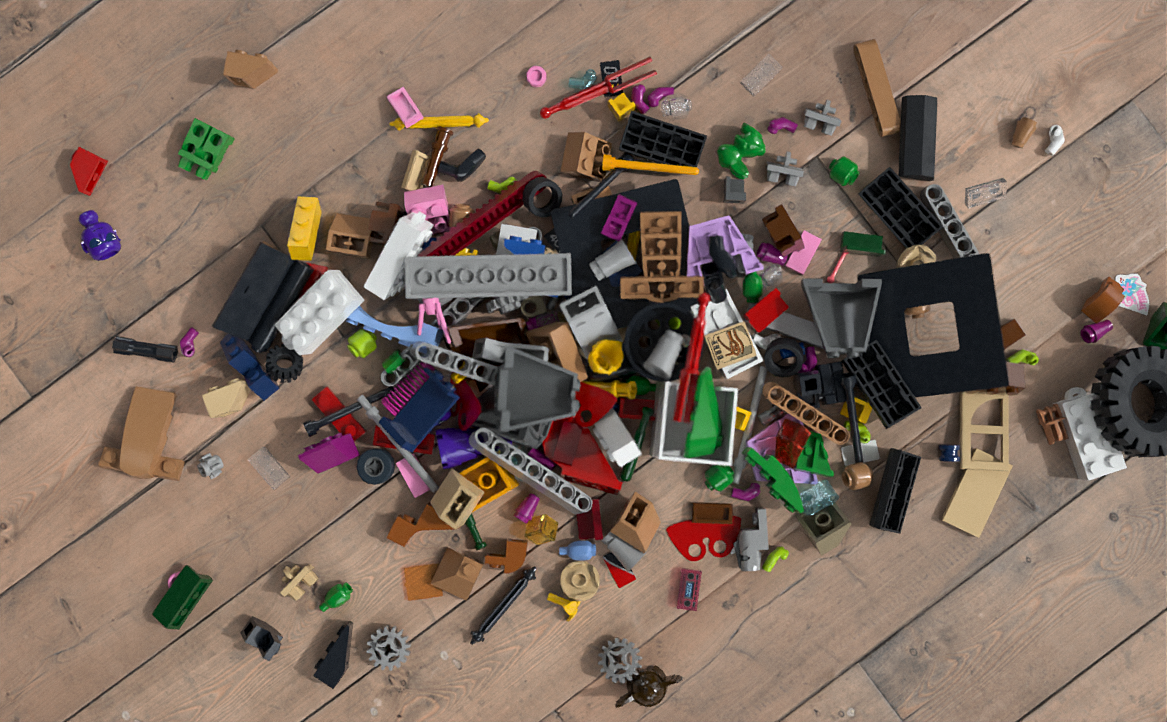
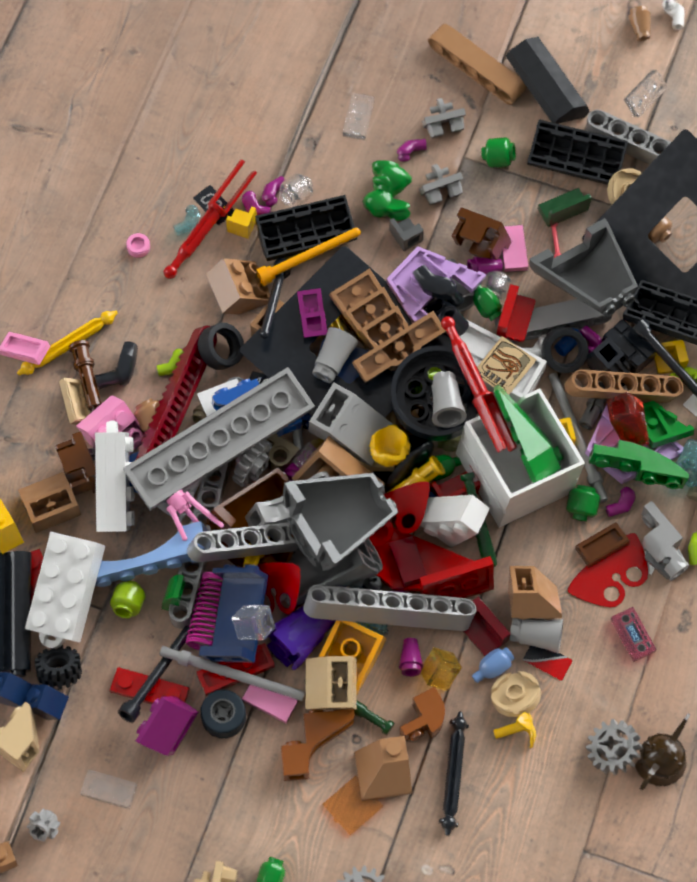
camera: 35 degrees left, 20 degrees down
(427, 425) = (253, 622): none -> clear panel

